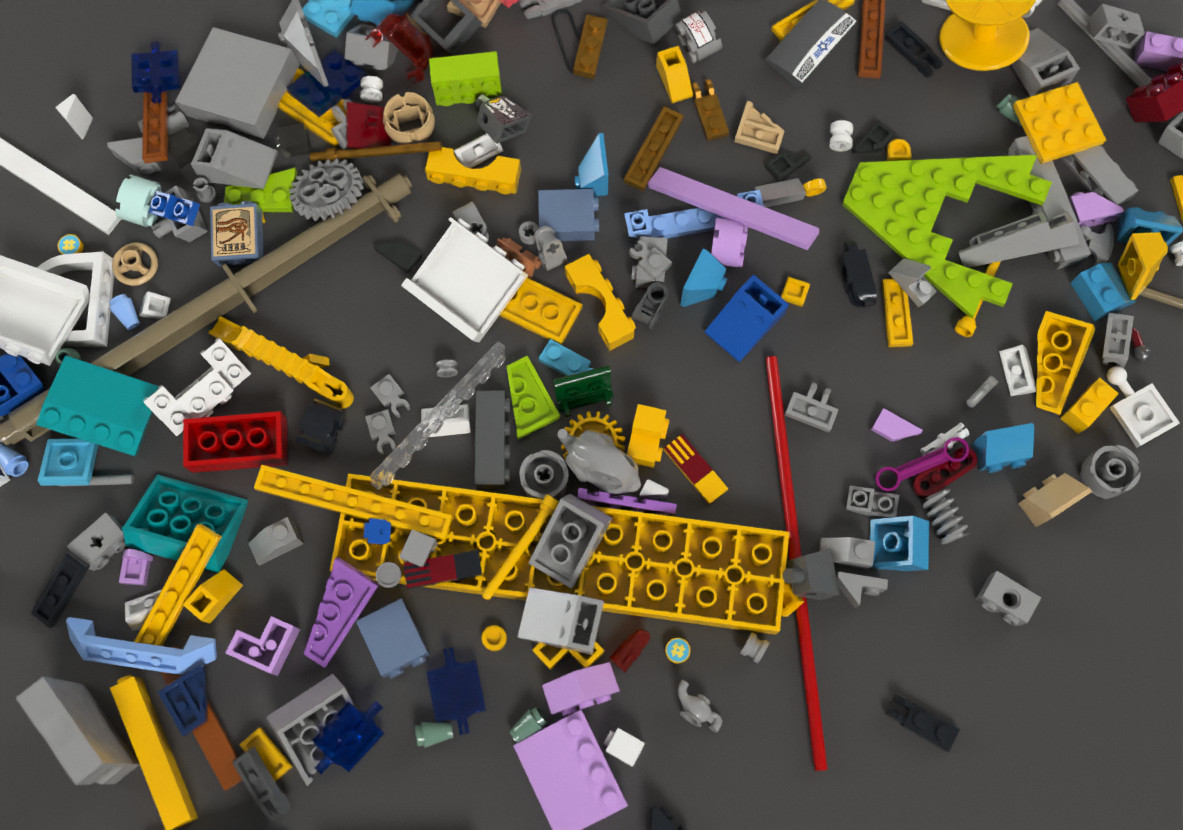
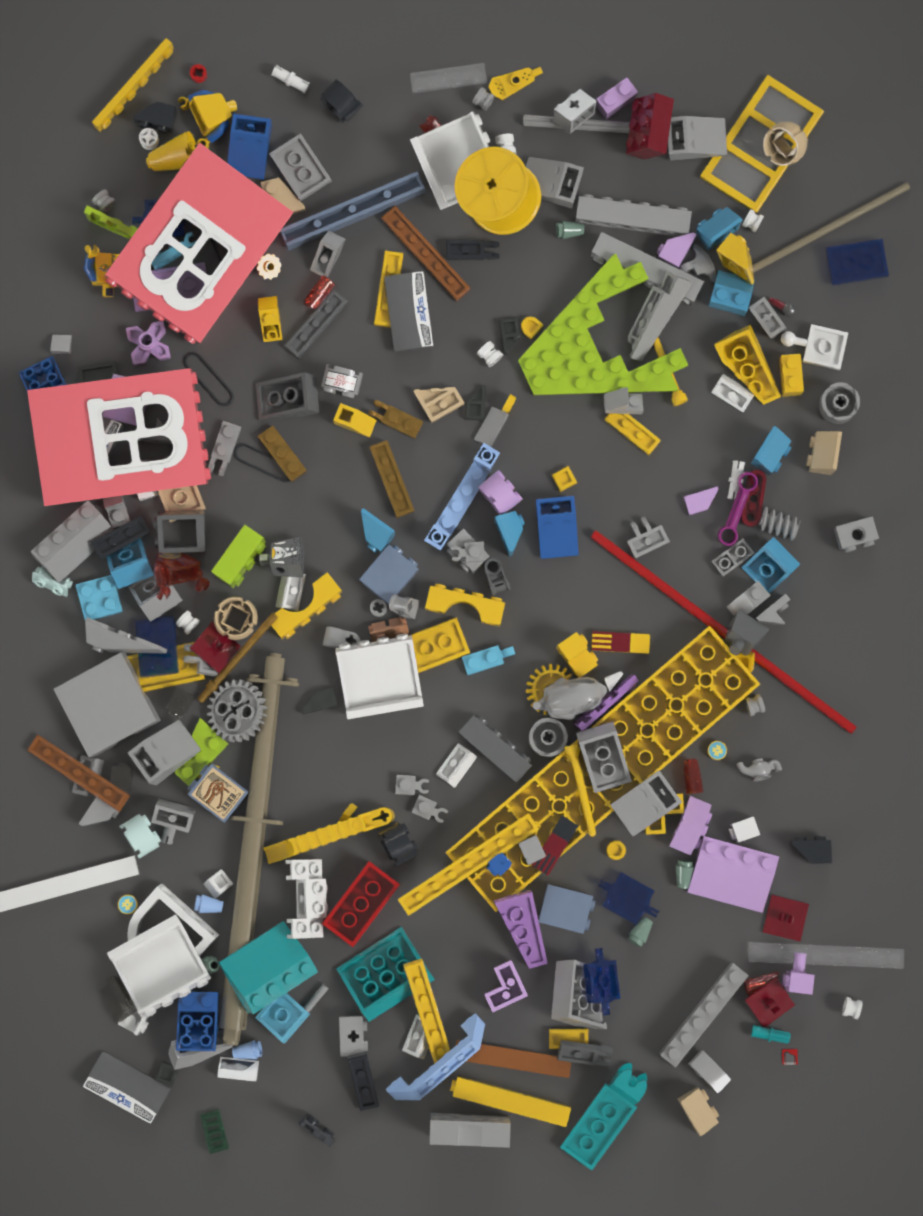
camera: 50 degrees left, 10 degrees up
(75, 115) = (38, 829): white slope -> none
(130, 253) = (172, 886): tan piece -> none
(135, 567) = (385, 1027): lavender tile -> none
(155, 72) = (52, 752): clear blue plate -> none
(174, 208) = (172, 817): blue slope -> none
(187, 700) = (498, 1057): dark blue wing -> none
(205, 192) = (171, 788): light grey pin -> none
(213, 596) = (447, 993): yellow slope -> none
(275, 541) = (444, 931): light grey slope -> none
(388, 575) = (529, 880): light grey piece -> none
(434, 420) = (458, 775): clear plate -> none
(446, 368) = (424, 736): light grey bush -> none
(529, 398) = (488, 702): lime wing -> none
(583, 389) = (514, 666): dark green piece -> none
(734, 208) = (481, 472): lavender tile -> none
(858, 276) = (590, 433): black piece -> none
(925, 724) = (881, 648): black hinge -> none
(982, 391) = (726, 429): light grey bar -> none
(1059, 123) = (606, 215): yellow plate -> none

